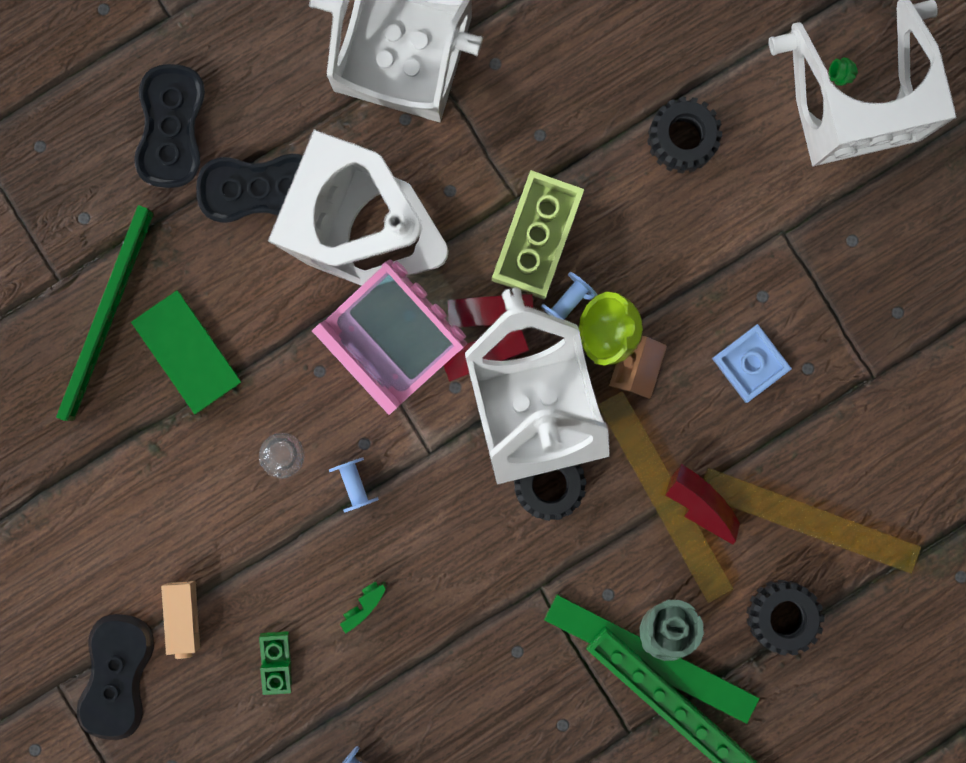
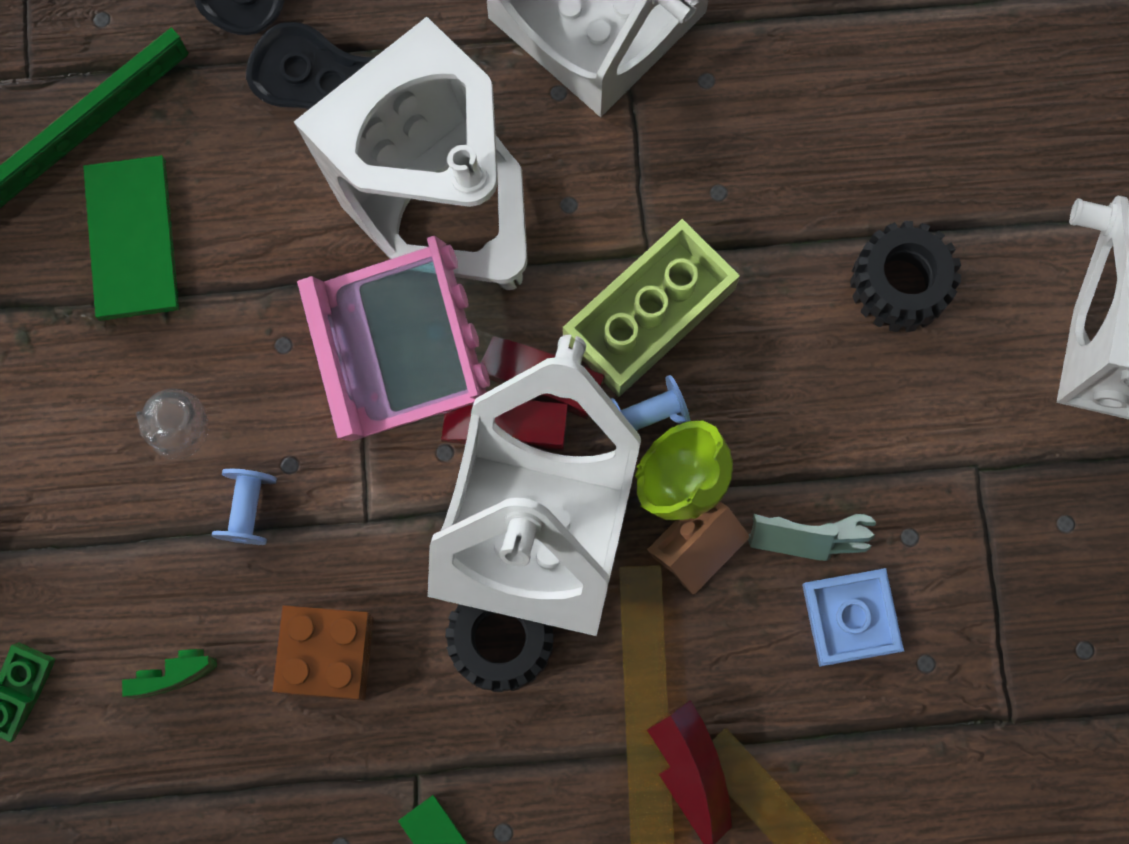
camera: 30 degrees right, 10 degrees down
(449, 547) = (323, 653): none -> dark orange brick
(687, 336) = (812, 541): none -> sand green arm

